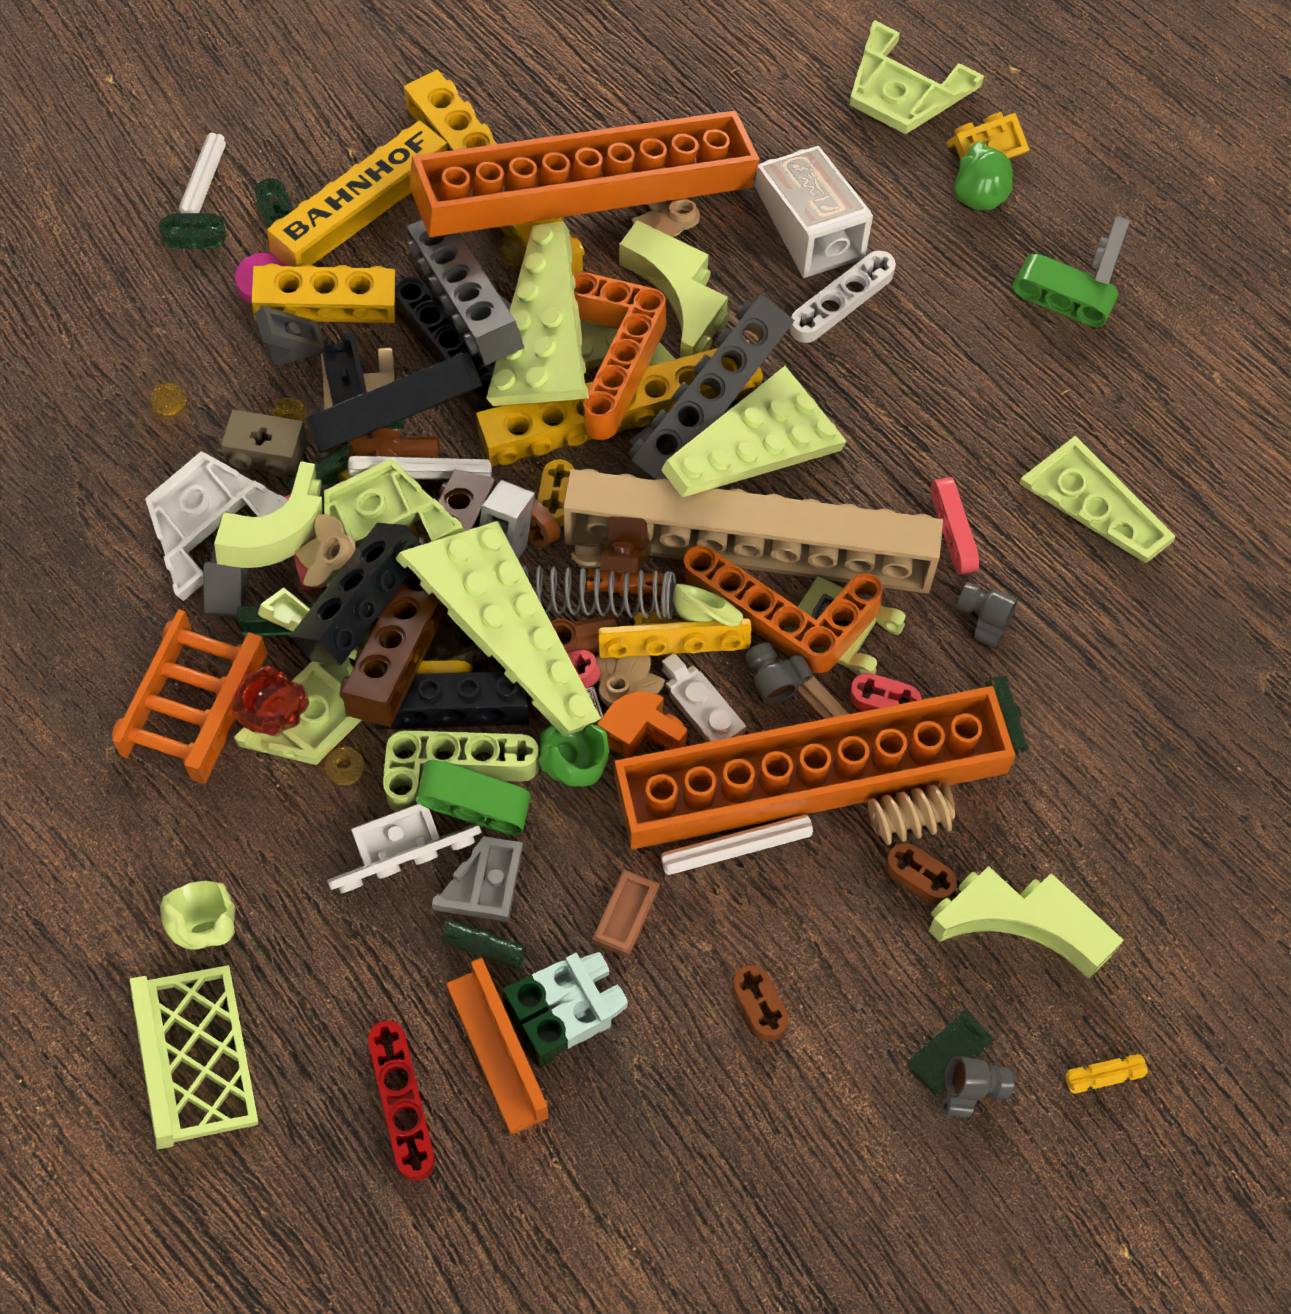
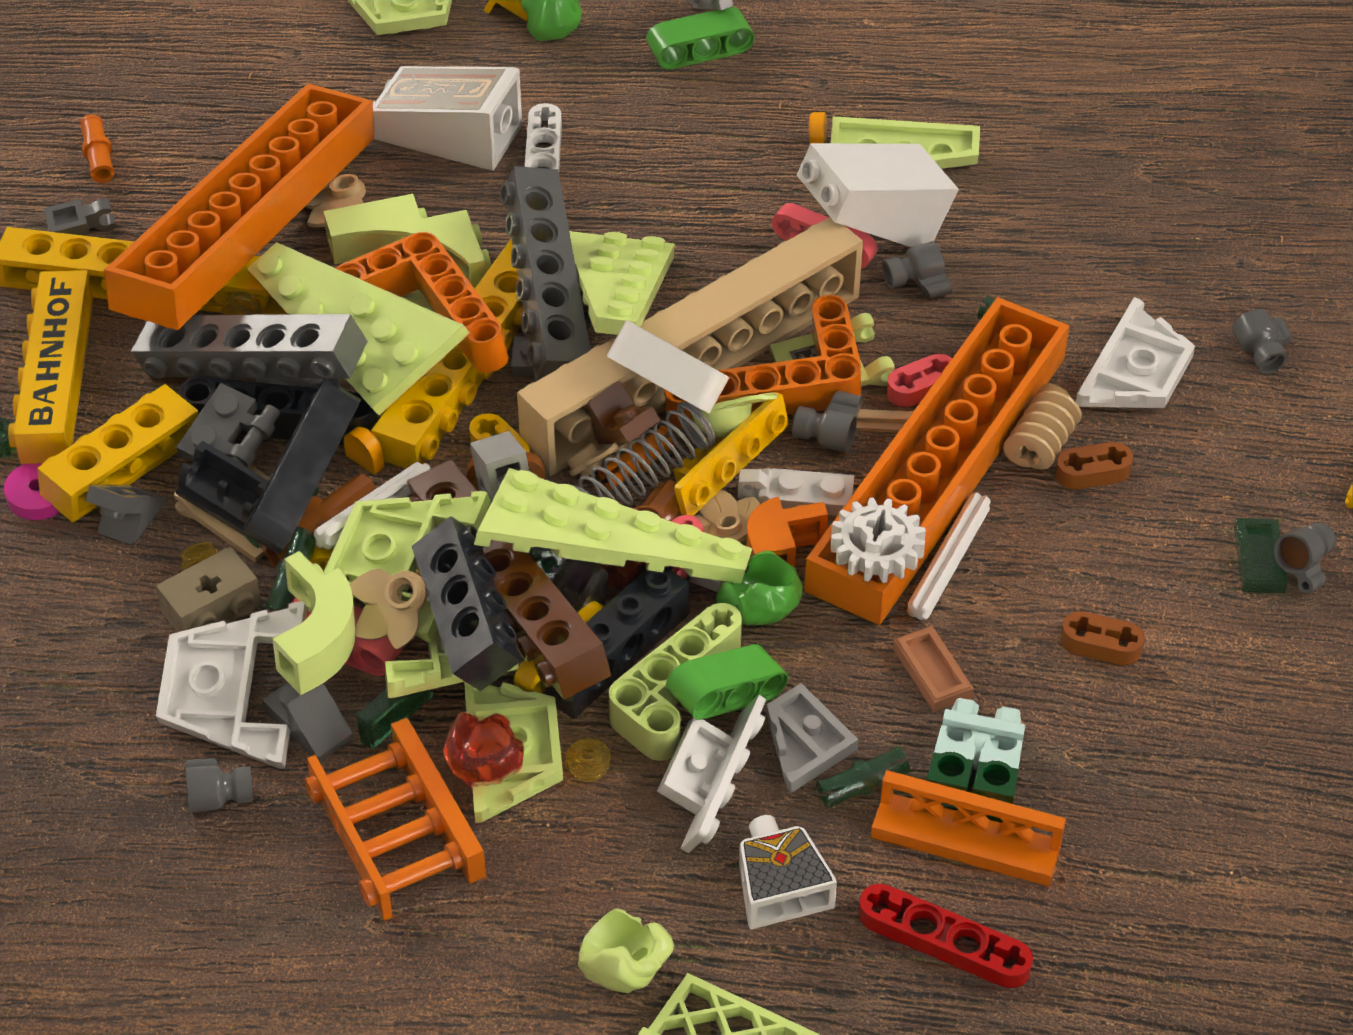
camera: 45 degrees left, 15 degrees down
(121, 572) = (211, 787): none -> dark grey piece
(168, 400) = (73, 635): clear yellow plate -> none
(352, 957) = (782, 874): none -> torso
(390, 329) = (223, 421): none -> dark grey plate
(469, 423) = (364, 449): none -> light orange tile
(493, 93) = (76, 218): none -> dark grey plate
(568, 51) = (96, 148): none -> orange pin
(670, 778) = (877, 540): none -> white gear
(673, 539) = (667, 366): none -> white beam
(1006, 525) = (880, 189): none -> white slope
(1042, 913) = (1201, 419): yellowish green arch -> none
(1051, 826) = (1137, 364): none -> white wing
(1056, 436) = (817, 127): none -> light orange tile
(1171, 888) = (1263, 339): none -> dark grey piece

